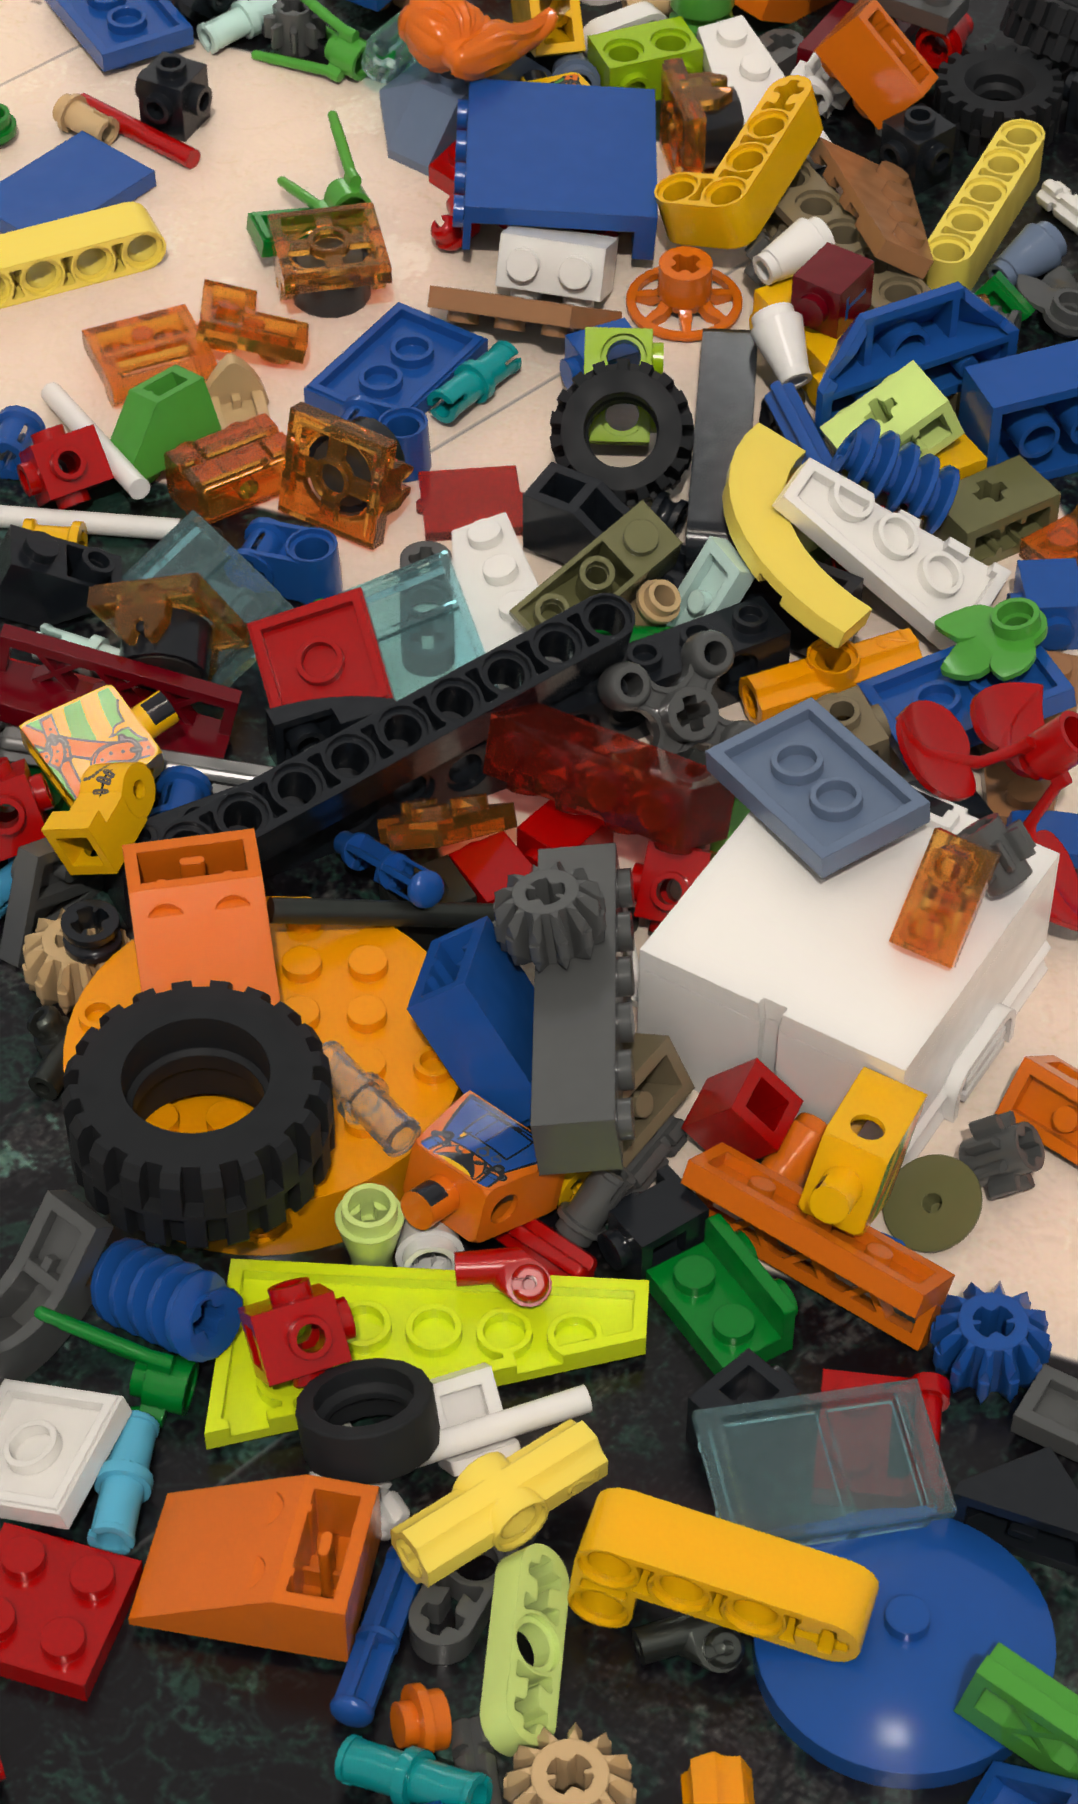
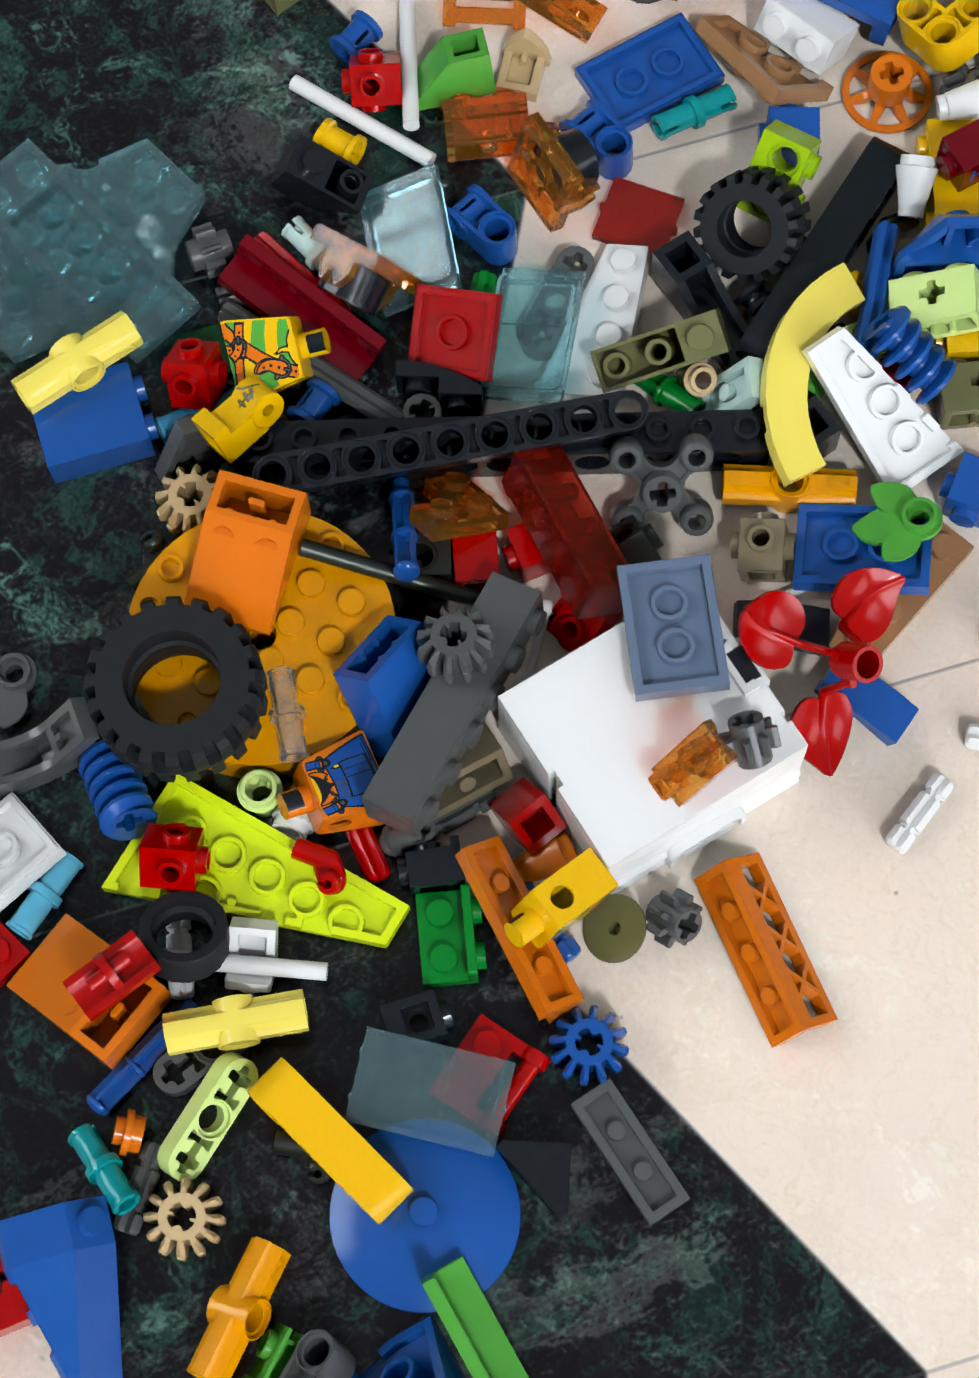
camera: 30 degrees right, 25 degrees up
(87, 915) = (187, 491): black bush -> none
(158, 1378) = (92, 840): green plant -> none
(301, 1483) = (111, 975): none -> red hips

